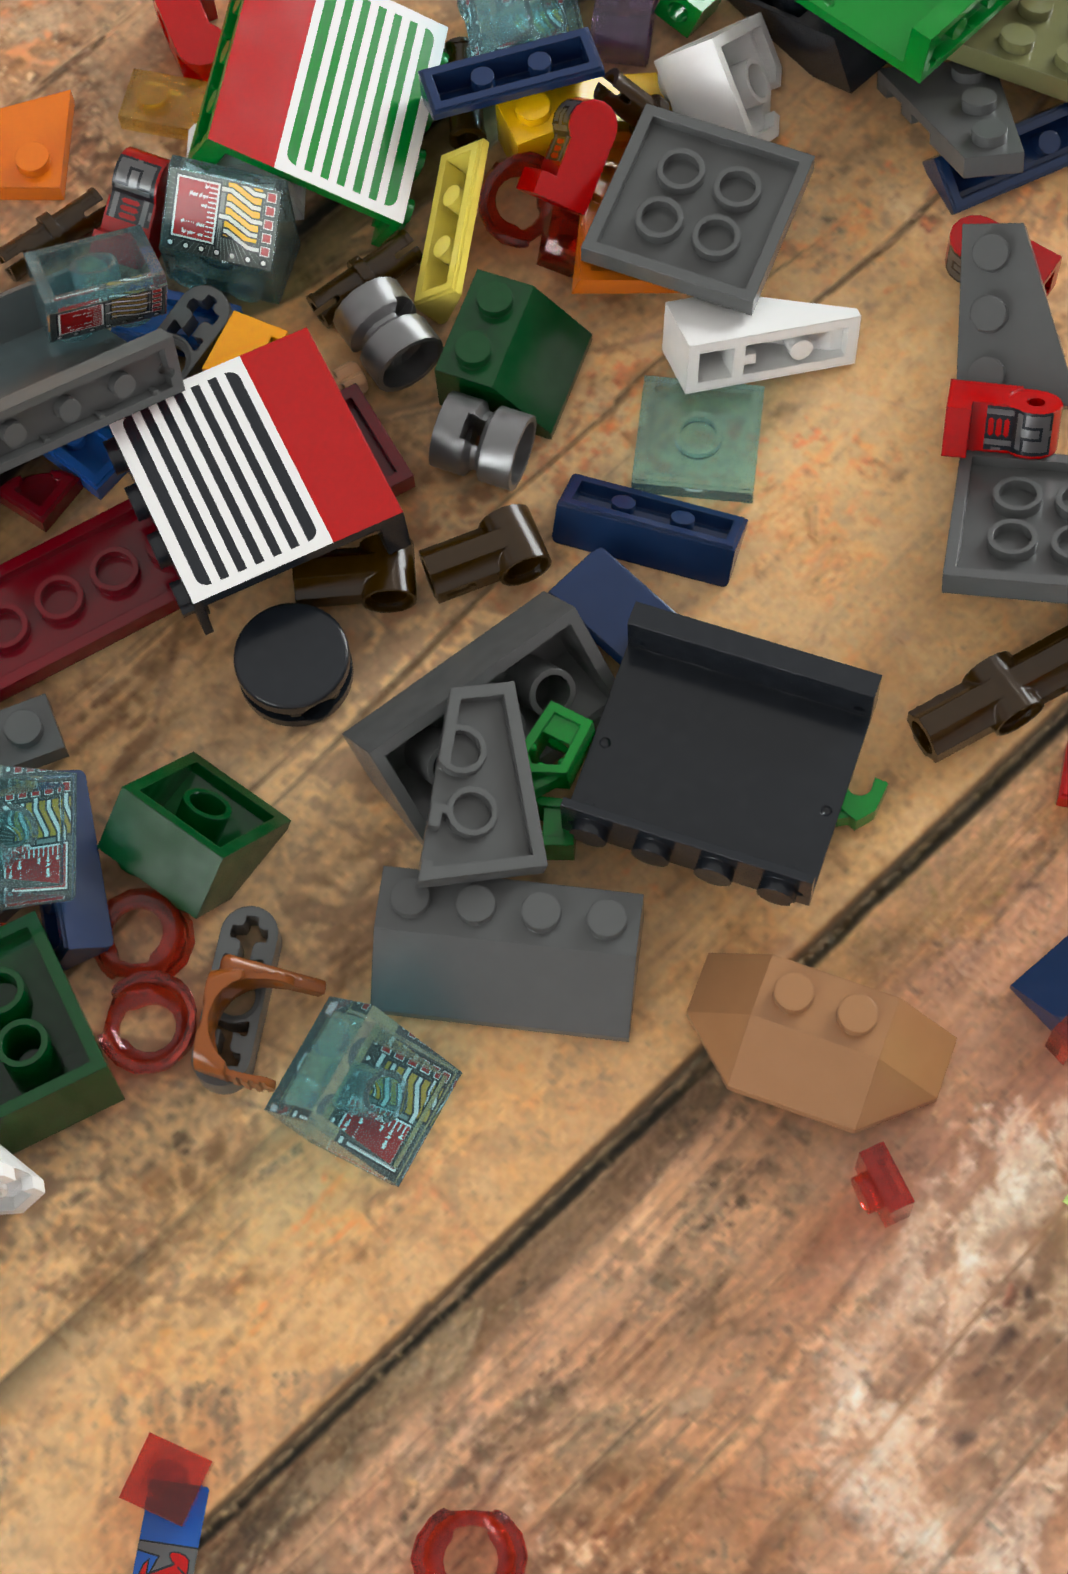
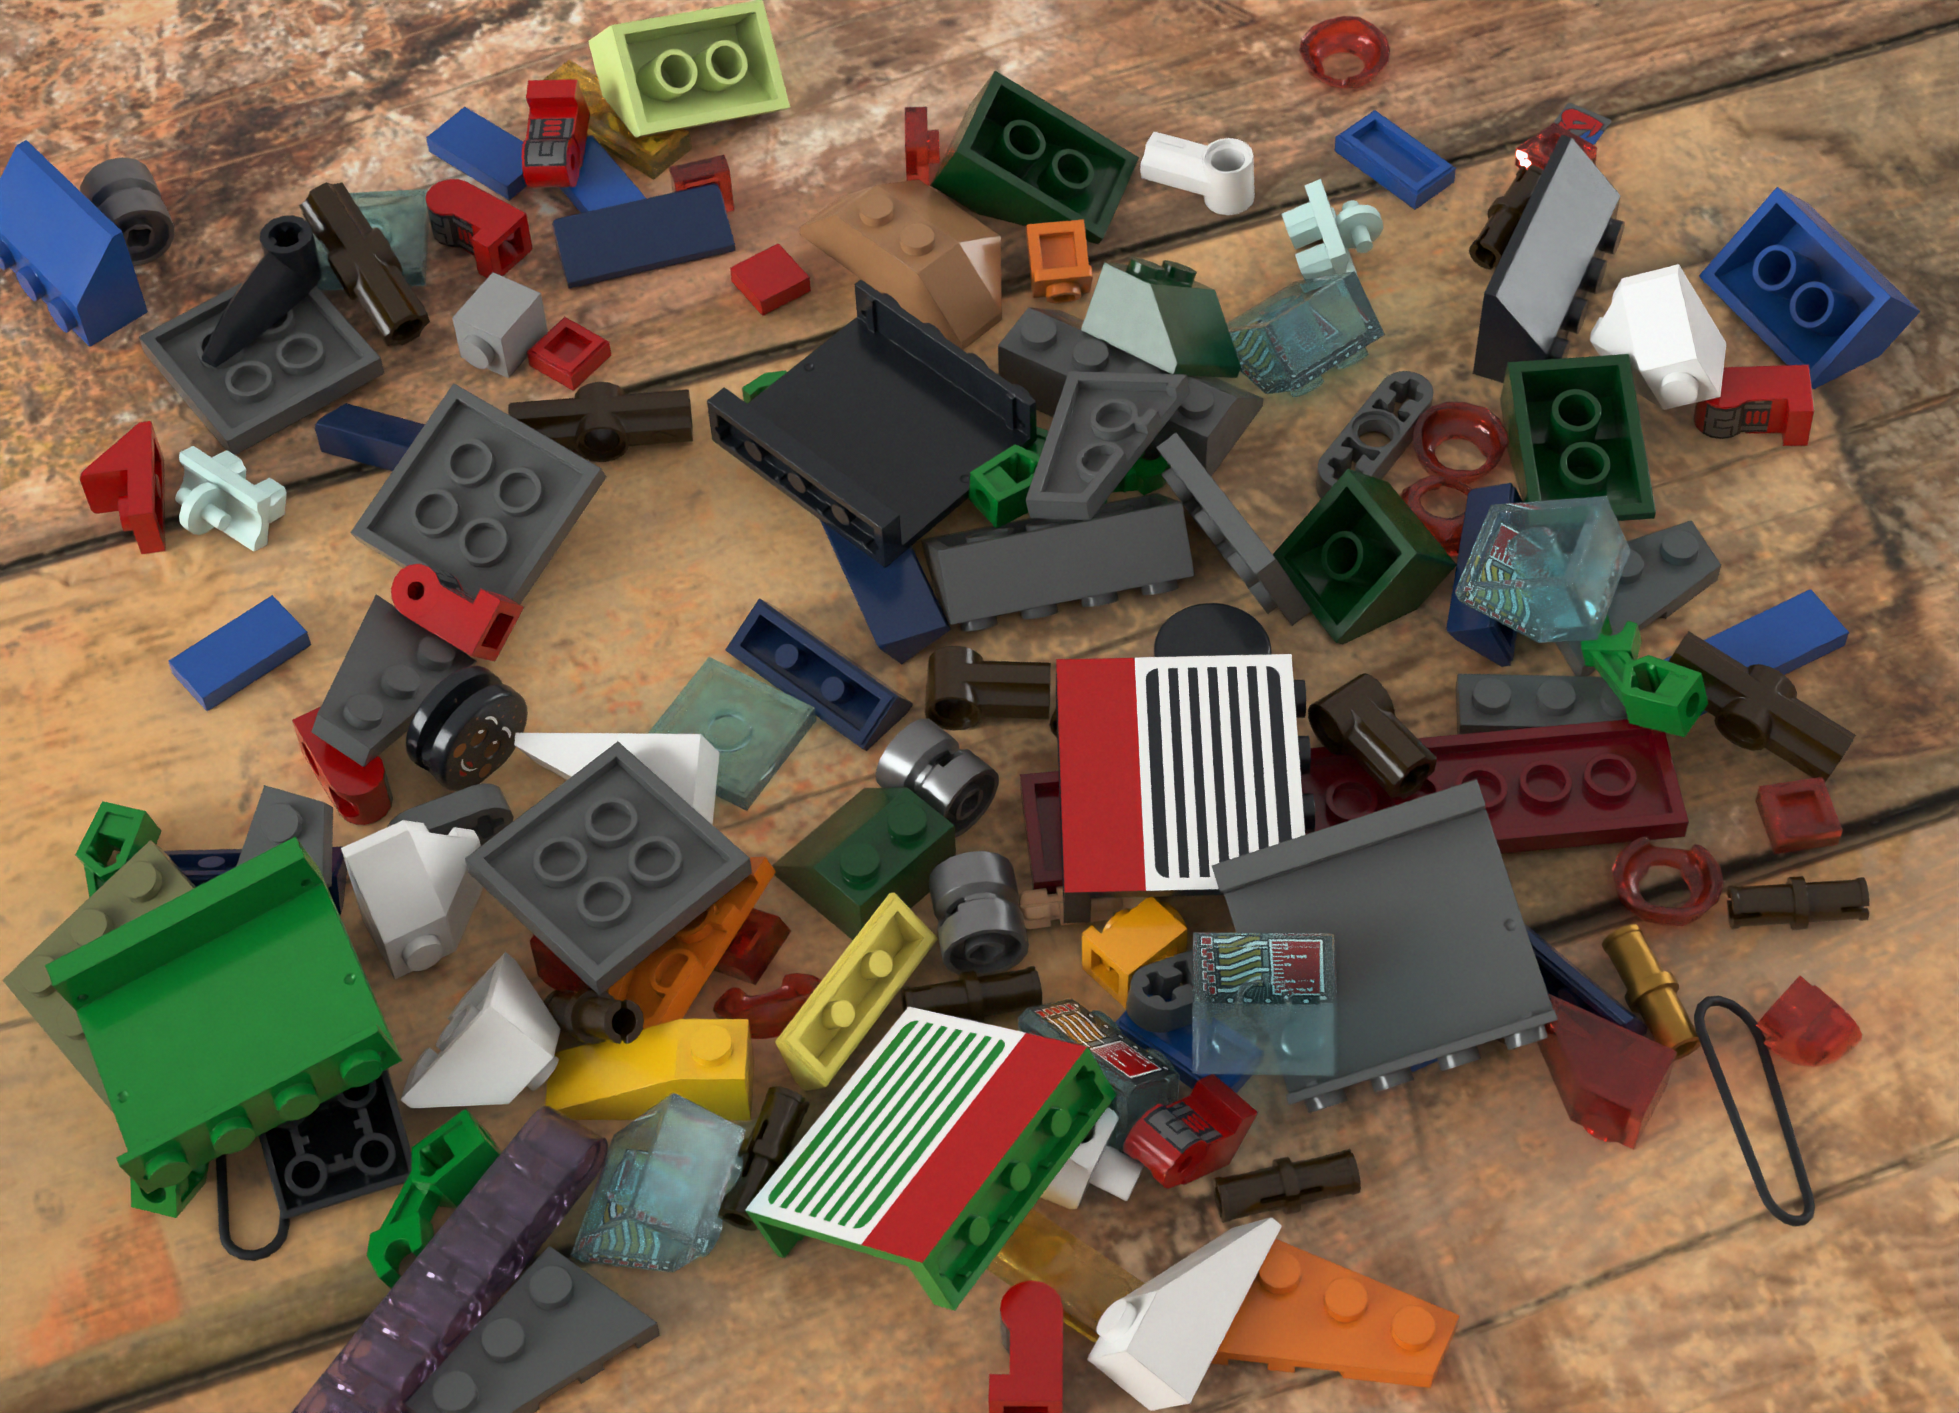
camera: 160 degrees left, 15 degrees down
(90, 93) = (1170, 1328): none -> white slope
(116, 1267) = (1549, 264): none -> slope
(120, 615) = (1364, 724): none -> dark brown piece
(190, 1364) = (1503, 218): none -> dark brown pin
(222, 986) = (1381, 413): dark orange helmet -> none
(319, 780) = (1230, 532): none -> dark grey plate
(354, 1417) = (1395, 159): none -> blue tile
(368, 1246) = (1316, 220): none -> light aqua hips
(484, 995) = (1162, 318): none -> dark green slope
(510, 73) = (726, 1075): dark blue slope -> none
(568, 1284) = (1217, 171): none -> white piece
(575, 157) = (704, 978): red leg -> none
(649, 1080) = (1058, 260): none -> orange bracket
(742, 1209) = (1032, 162): none -> dark green slope
(857, 160) = (414, 891): none -> white slope
(874, 246) = (473, 808): none -> dark grey beam
(909, 310) = (466, 727): none -> black head
(946, 952) = (770, 279): none -> red tile

